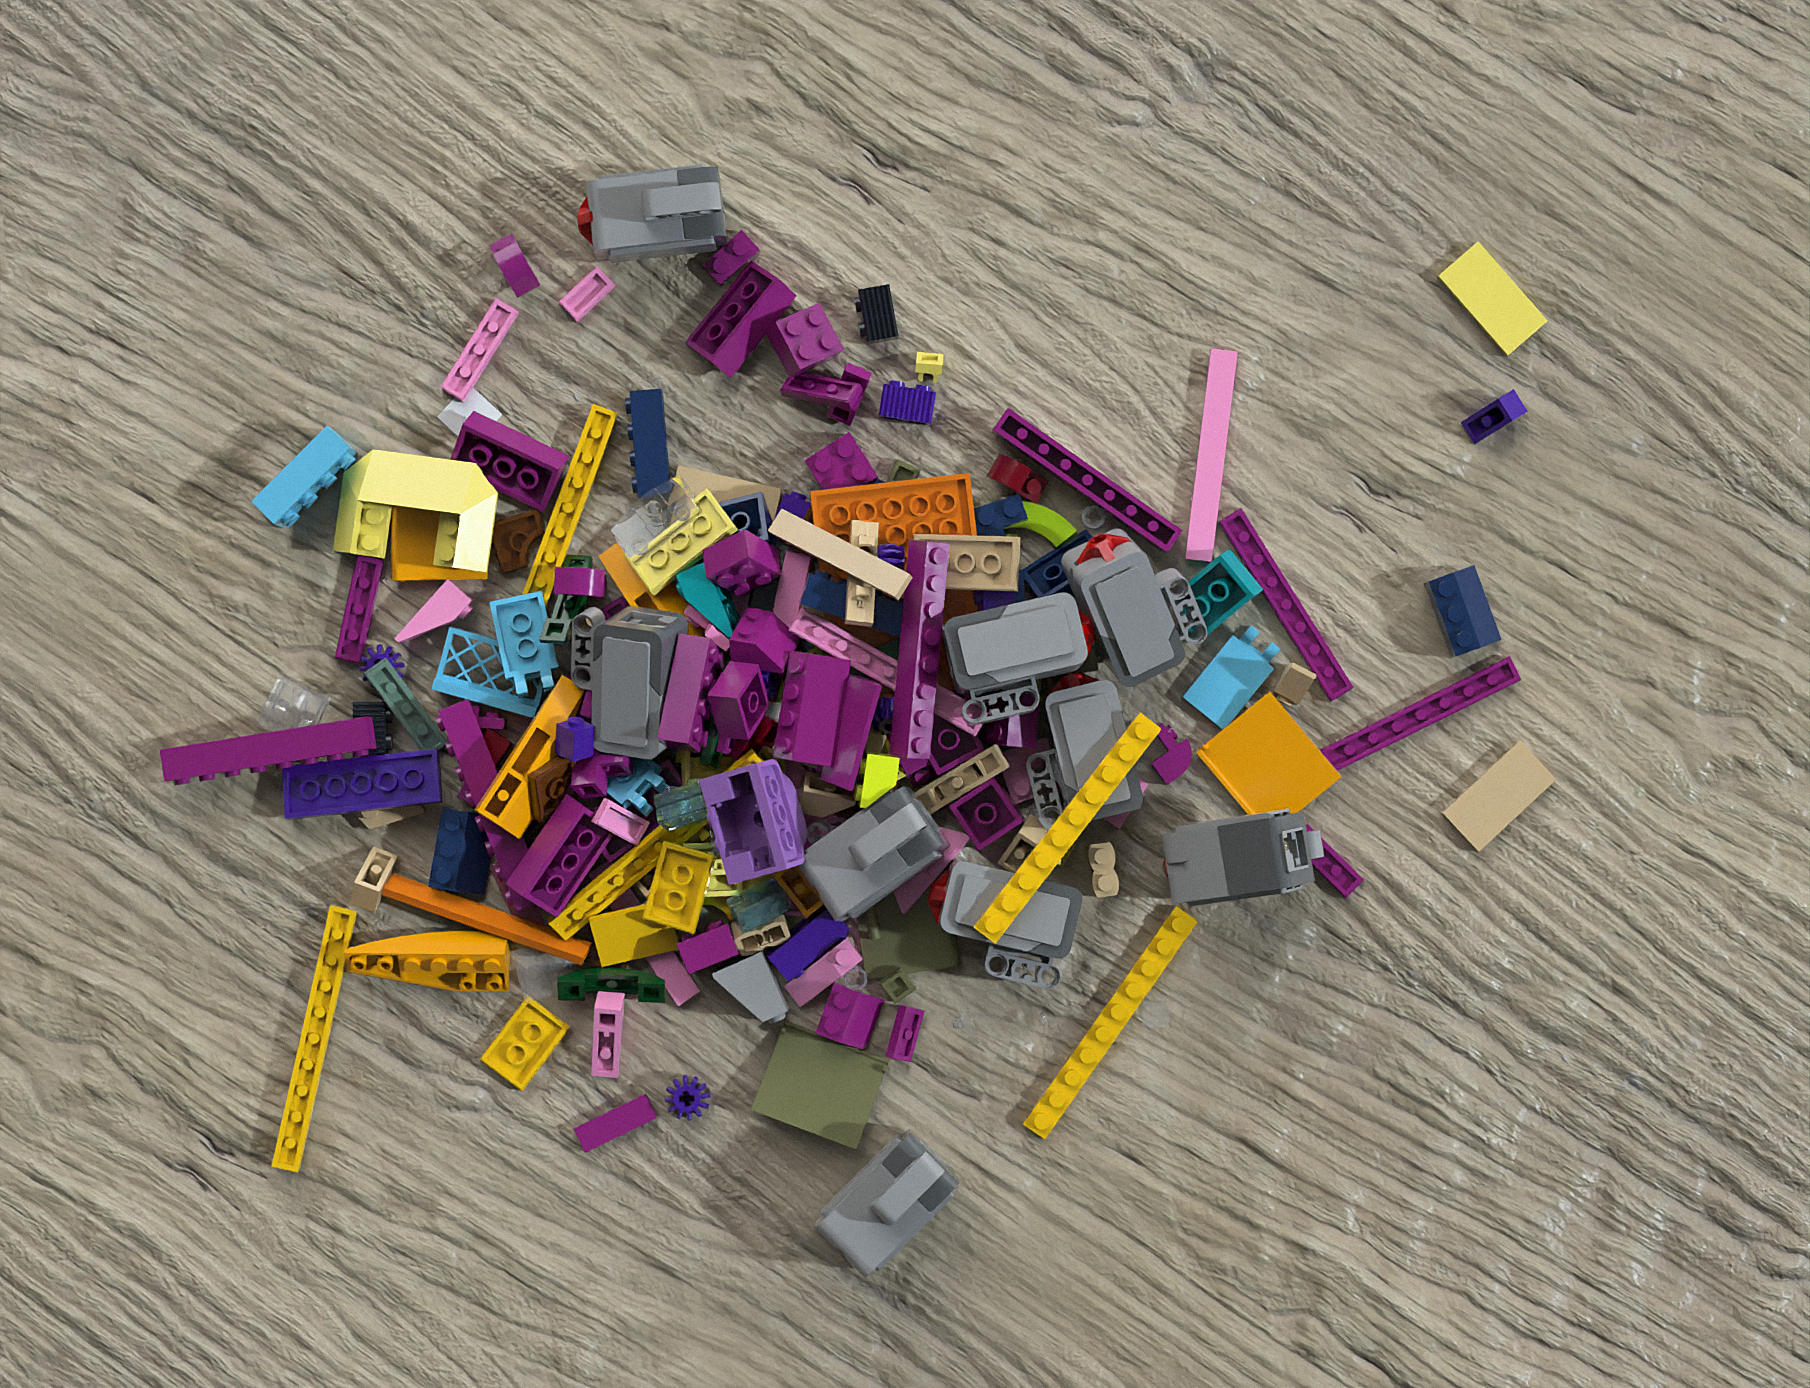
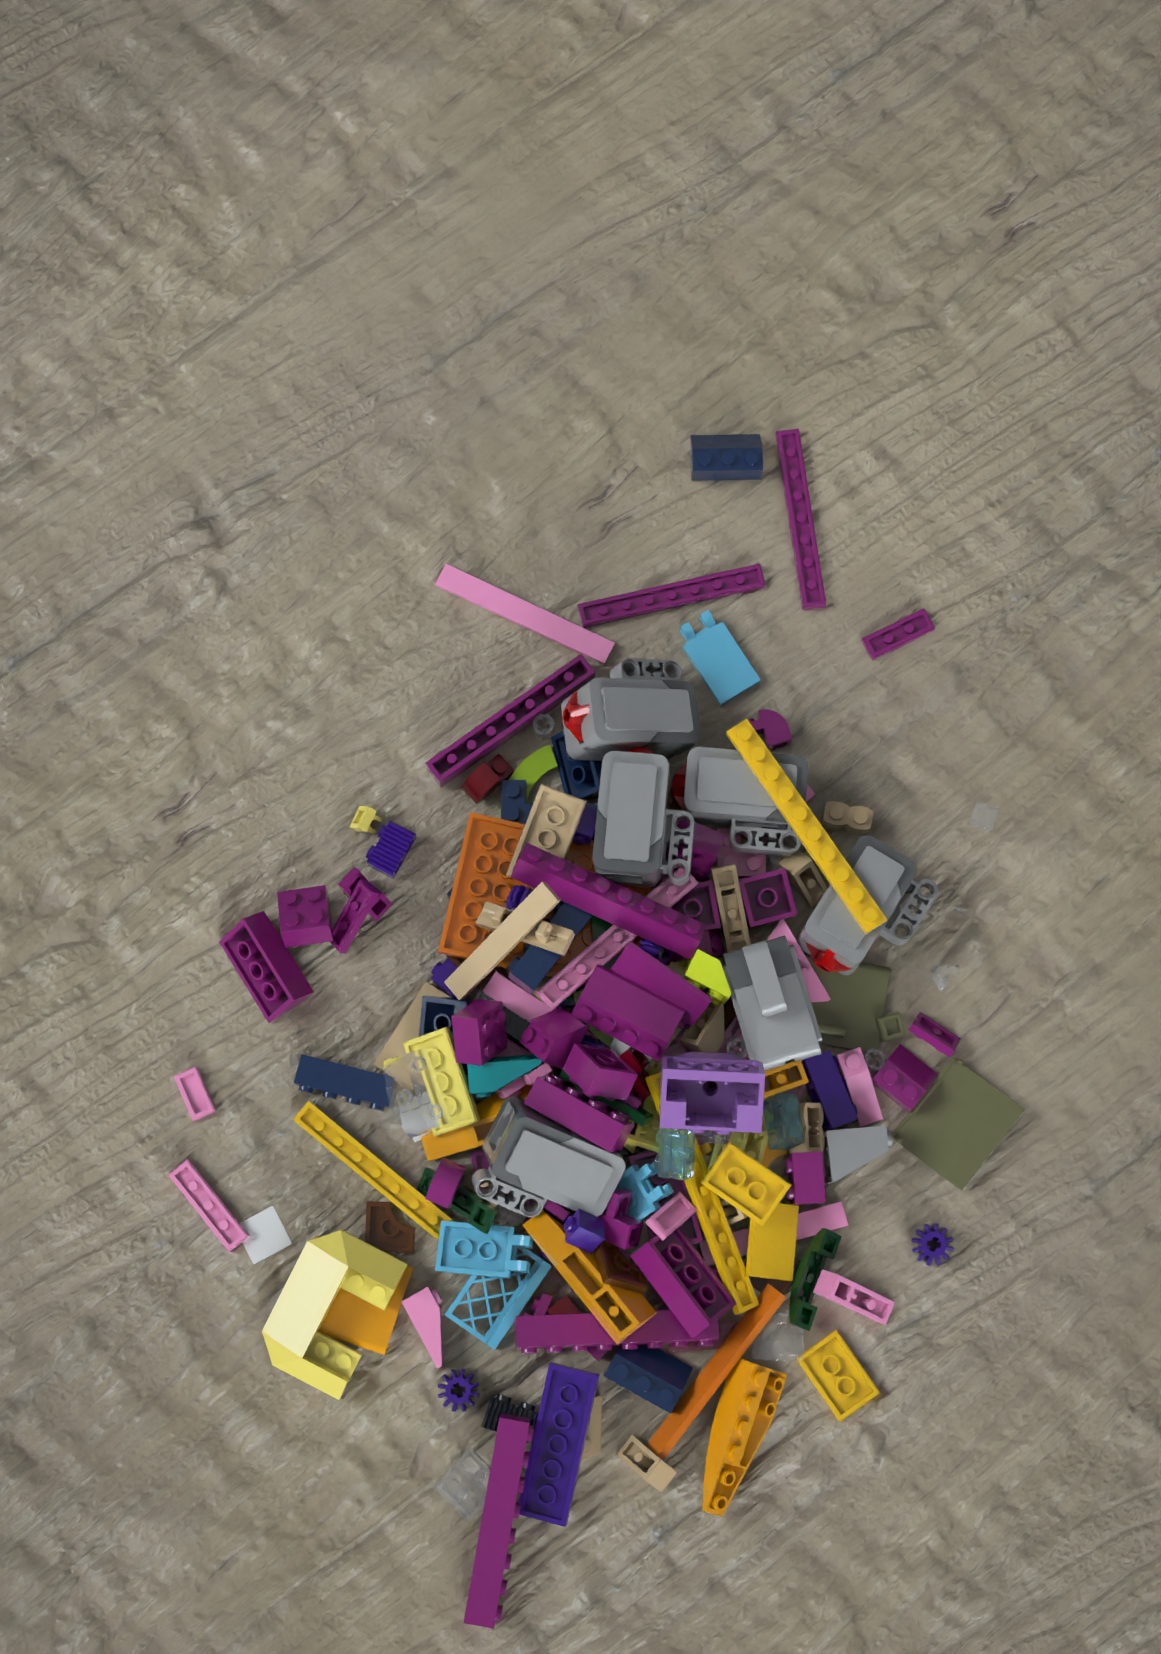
camera: 70 degrees left, 10 degrees down
(305, 477) = (264, 1400): medium azure brick -> none
(314, 1039) = (774, 1569): yellow plate -> none
(359, 609) = (399, 1393): magenta tile -> none
(405, 706) = (501, 1379): sand green tile -> none
(511, 460) = (316, 1209): magenta slope -> none
(514, 265) = (146, 1147): magenta brick -> none
(615, 1122) = (934, 1317): magenta tile -> none
(654, 213) = (147, 1006): light grey piece -> none
(731, 257) = (210, 957): magenta plate -> none
(841, 465) = (423, 922): magenta brick -> none
(877, 314) = (305, 849): black brick -> none
(887, 1202) = (1080, 1096): light grey piece -> none
(903, 471) = (447, 873): olive tile -> none
(1110, 1022) = (979, 858): yellow plate -> none
(1222, 590) = (641, 637): teal slope -> none
(1240, 857) = (876, 696): piece -> none
(1268, 760) = (801, 652): light orange container -> none
(1293, 684) = (741, 608): tan slope -> none
(1492, 298) = (475, 349): light yellow tile -> none
(1494, 416) = (573, 378): dark purple slope -> none
(1498, 796) = (889, 478): tan tile -> none

